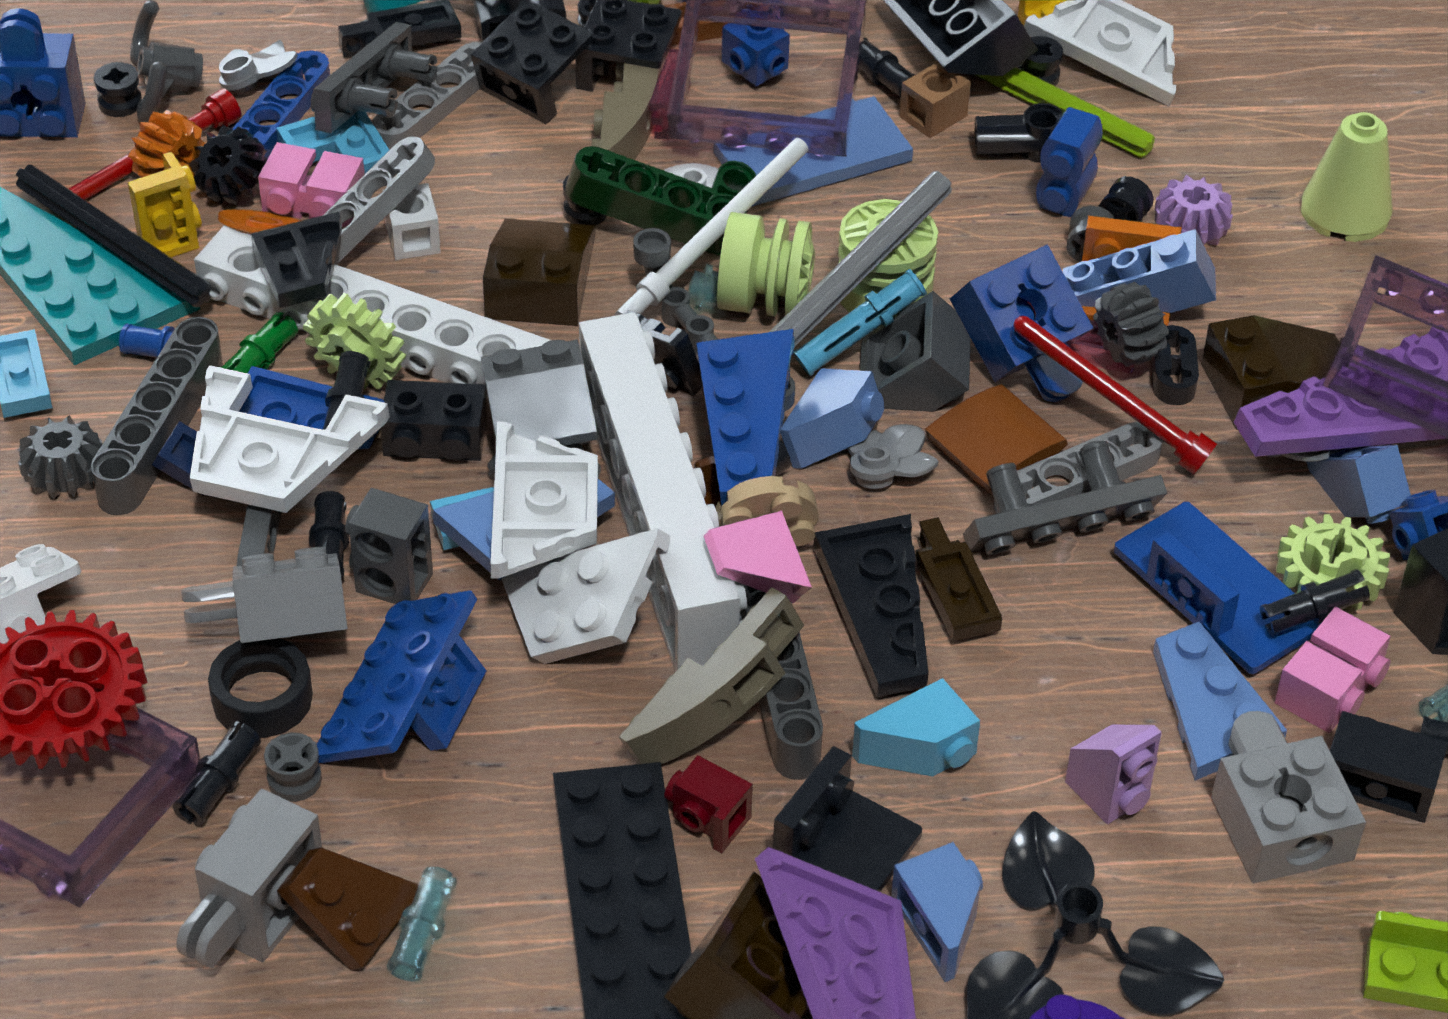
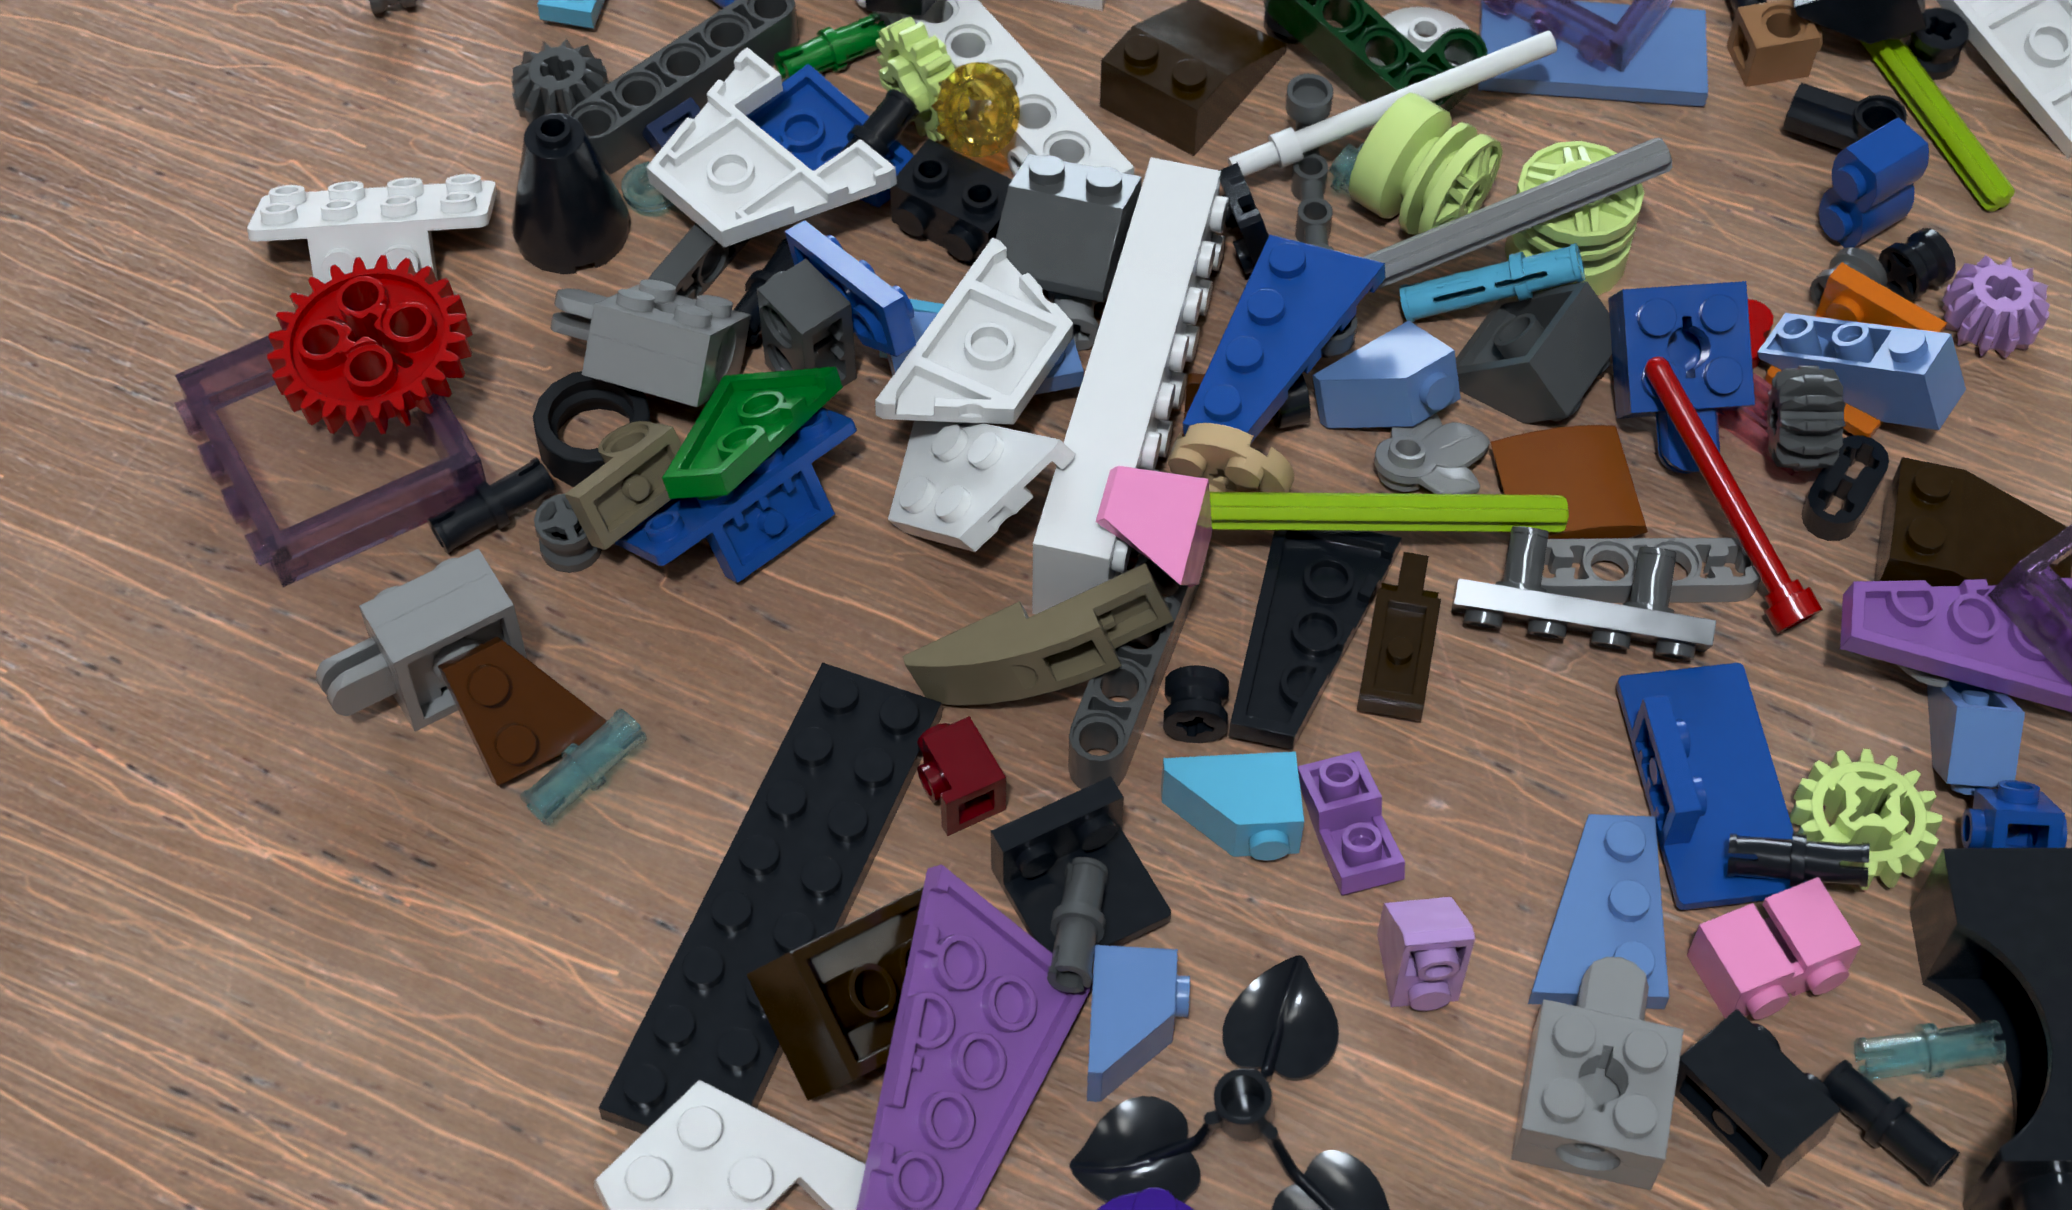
camera: 30 degrees right, 10 degrees up
(128, 531) = (565, 199): none -> black cone
(180, 504) = (642, 195): none -> clear light blue plate
(333, 697) = (627, 484): none -> dark tan plate
(396, 626) = (744, 426): none -> green wing
(433, 343) = (997, 119): none -> clear yellow gear
(454, 500) = (878, 311): none -> blue wing
(844, 683) = (1196, 704): none -> black wheel
(871, 859) = (1078, 925): none -> dark grey pin
(901, 494) = (1386, 511): none -> lime axle
(1004, 721) = (1350, 823): none -> medium lavender slope

